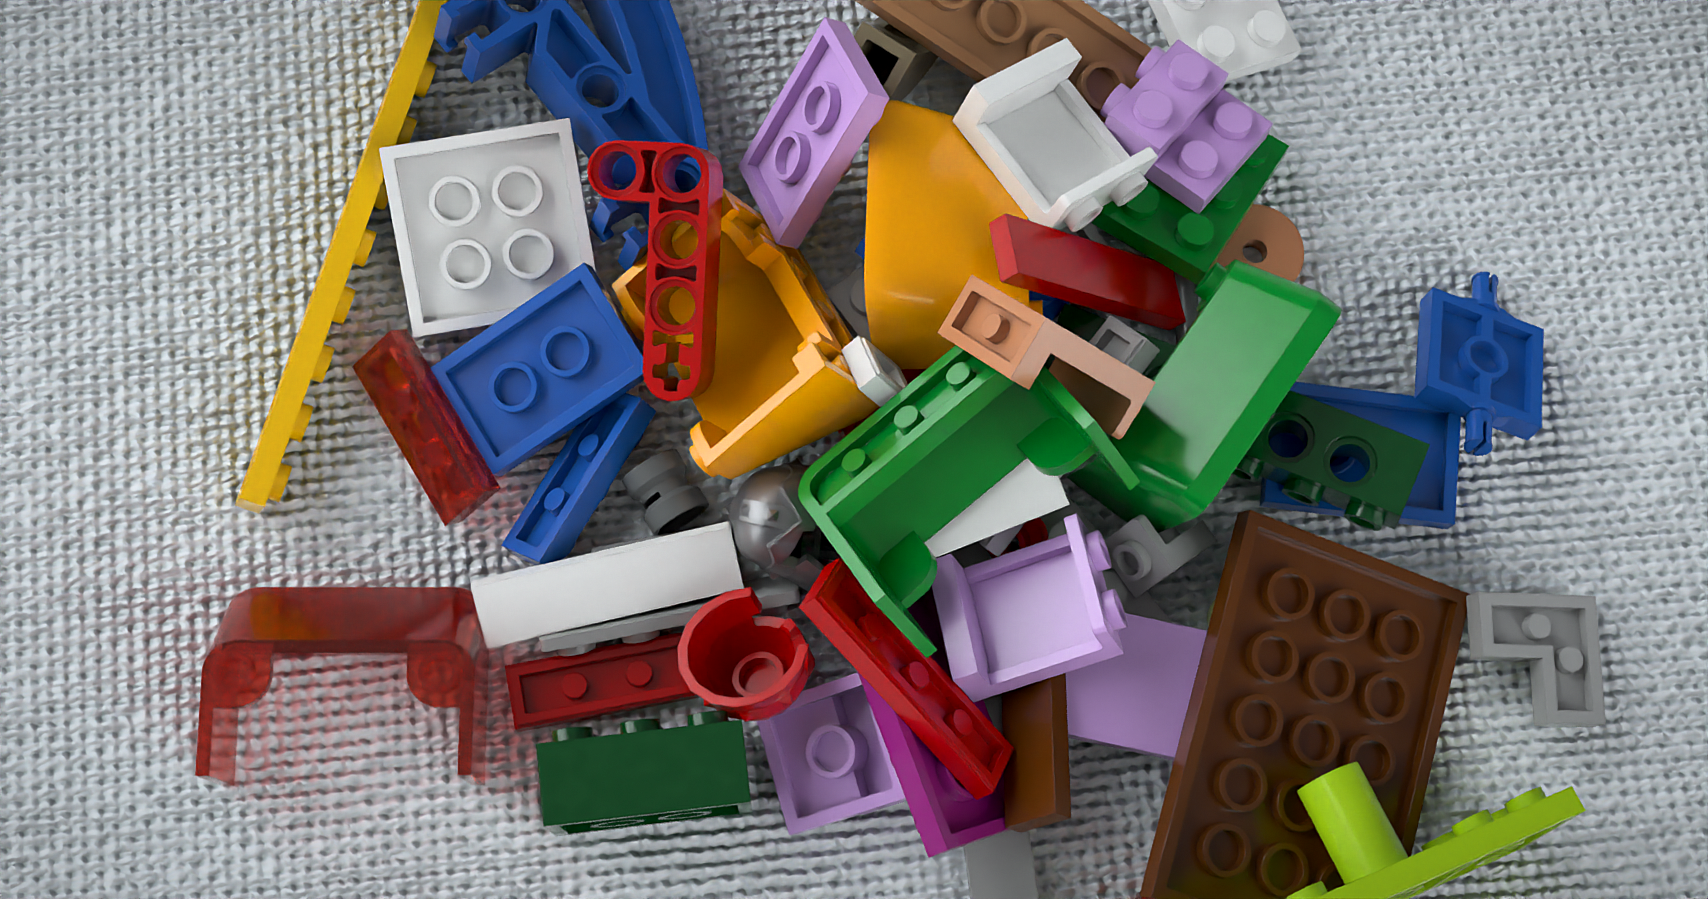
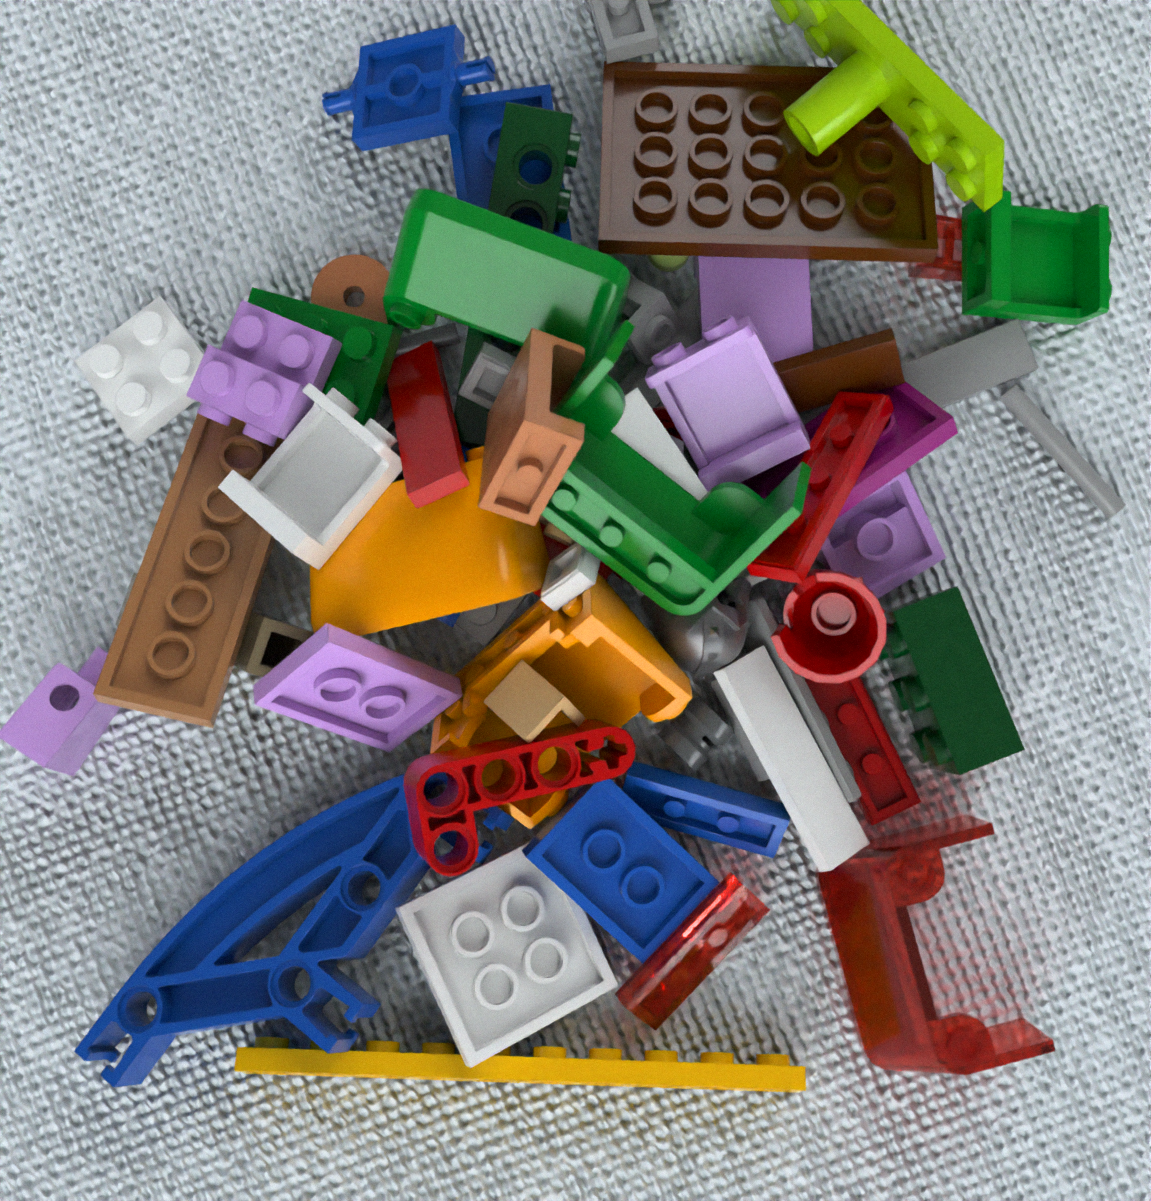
camera: 90 degrees left, 10 degrees up
(753, 303) = (529, 702): none -> tan panel

